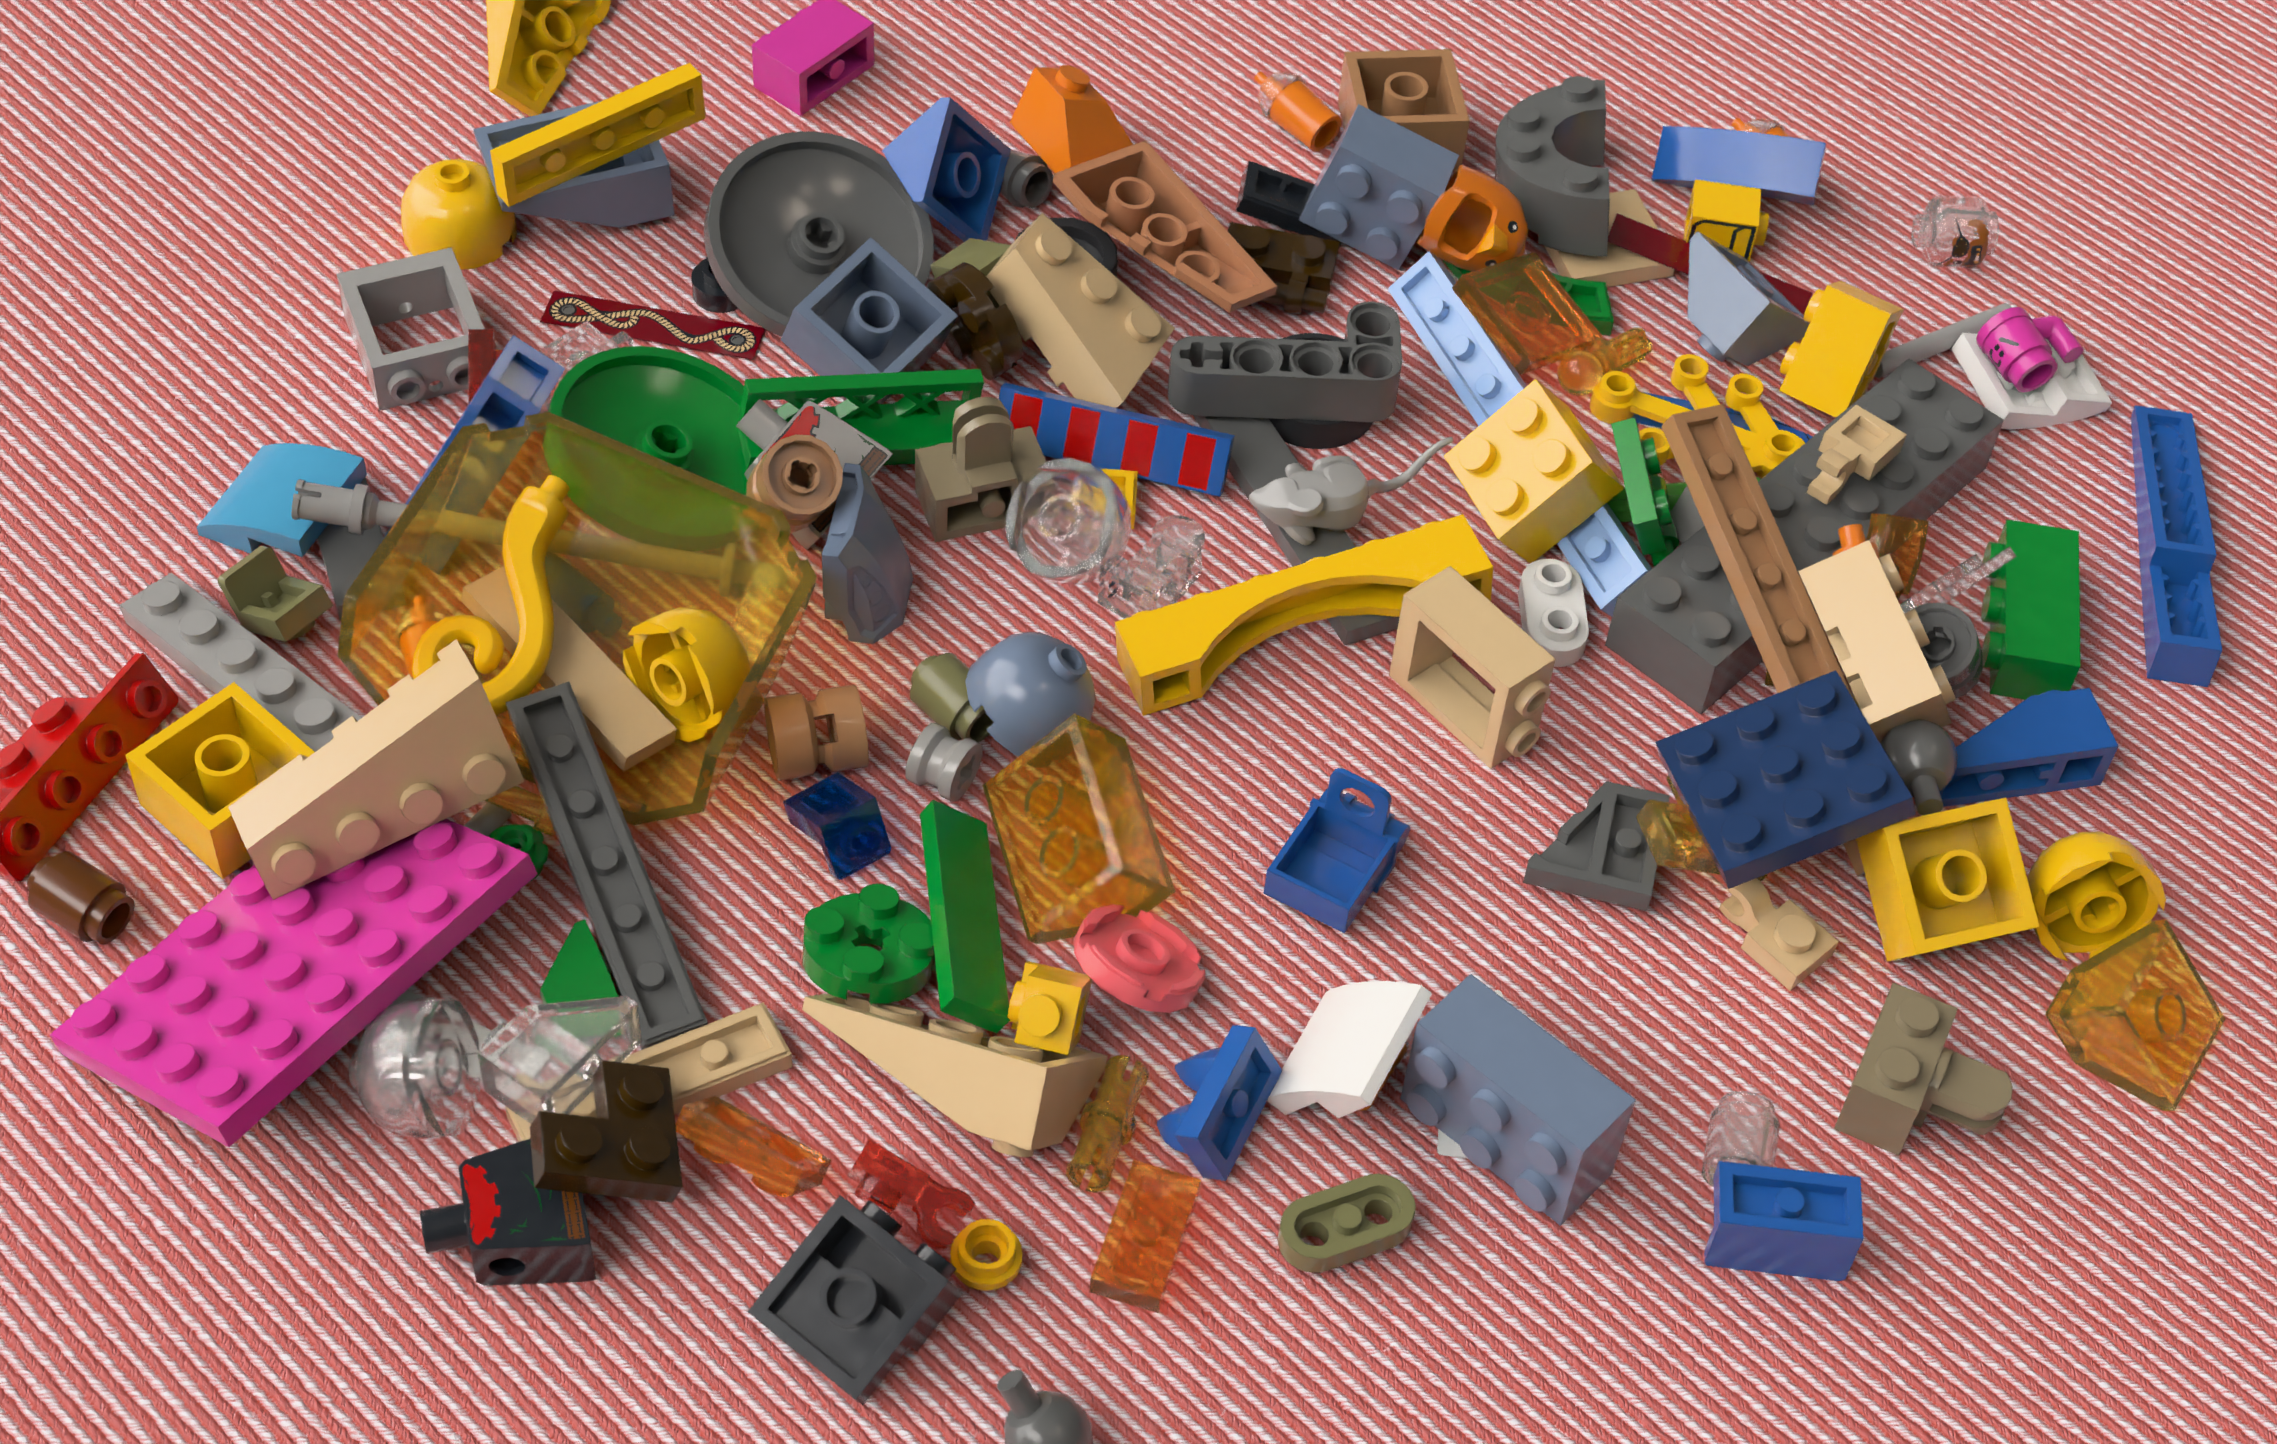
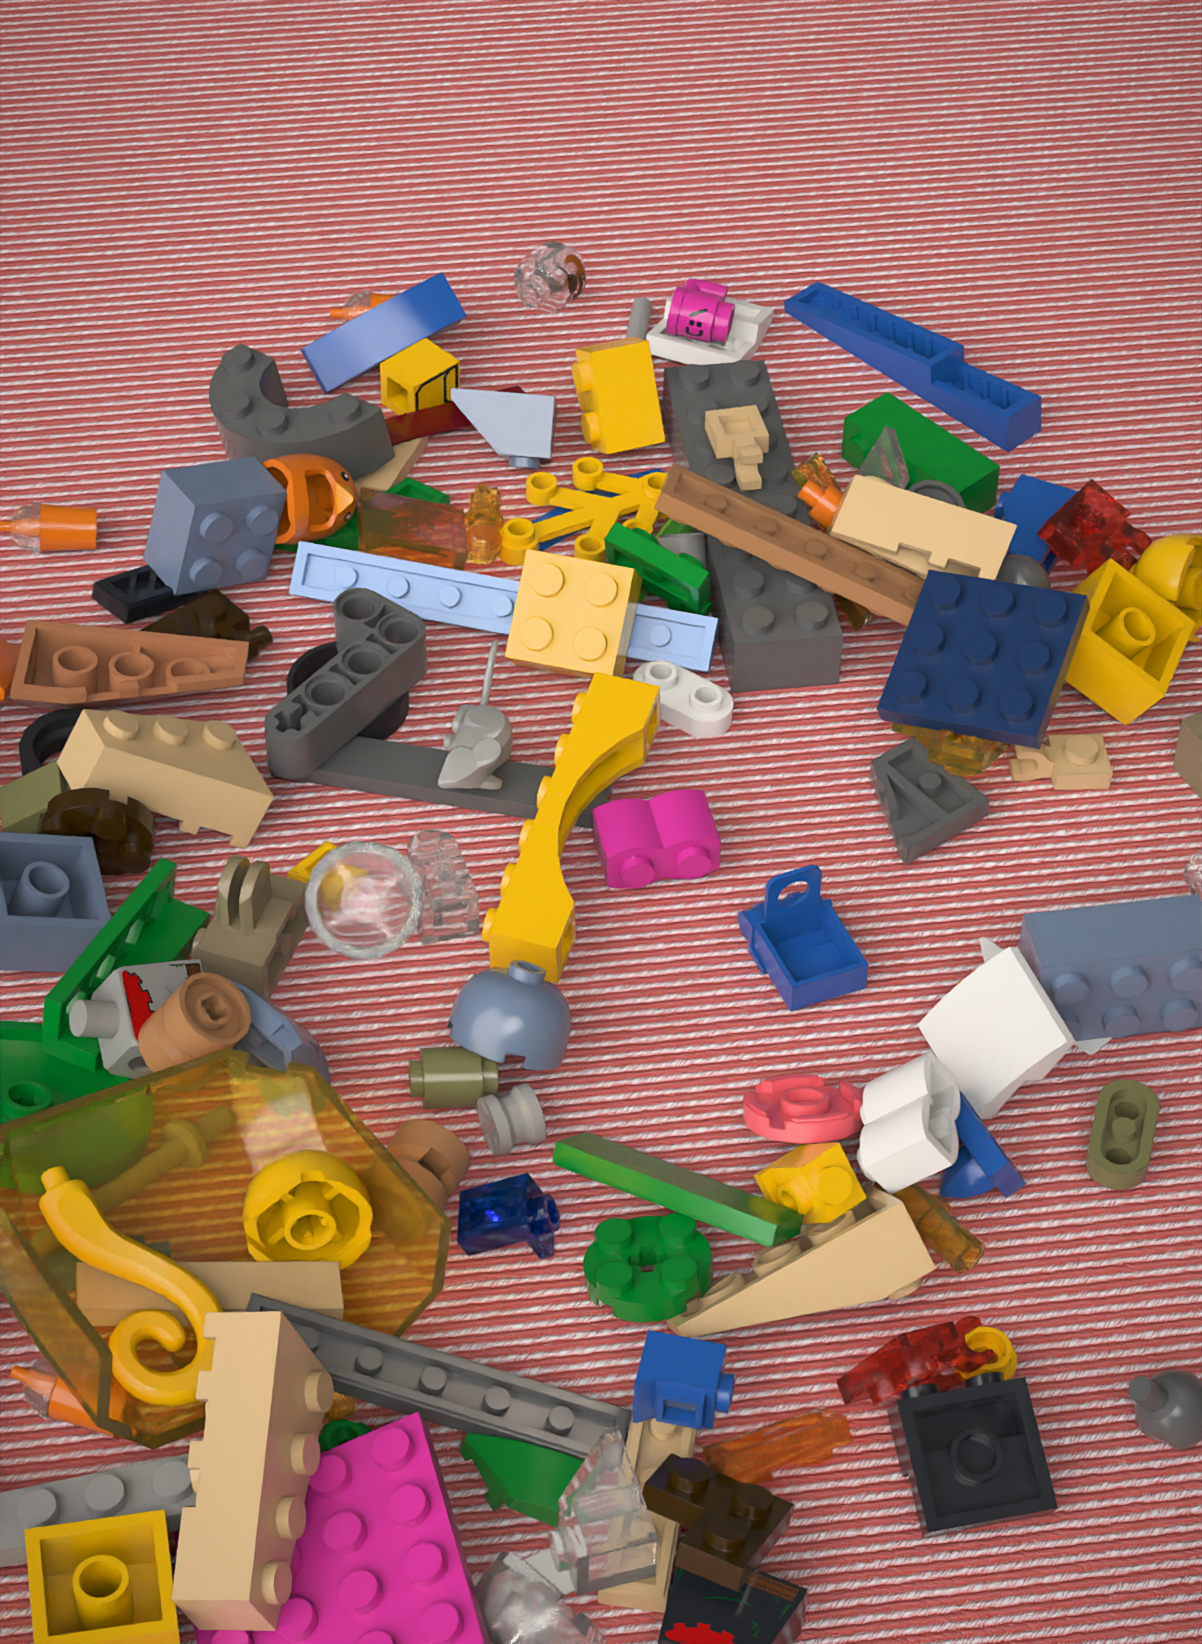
camera: 50 degrees left, 5 degrees down
(742, 1030) = (682, 1381): none -> blue window
(1076, 831) = (651, 1082): clear yellow slope -> none
(1122, 439) = (289, 829): tile -> none
(1145, 1236) = (1044, 1254): clear orange plate -> none
(1163, 1032) = (909, 1123): none -> white brick
(1356, 682) = (656, 838): none -> dark pink brick
(1410, 89) = (121, 464): medium nougat brick -> none
(1454, 616) = (727, 729): tan window -> none
(2067, 768) = (1092, 530): none -> clear red plate

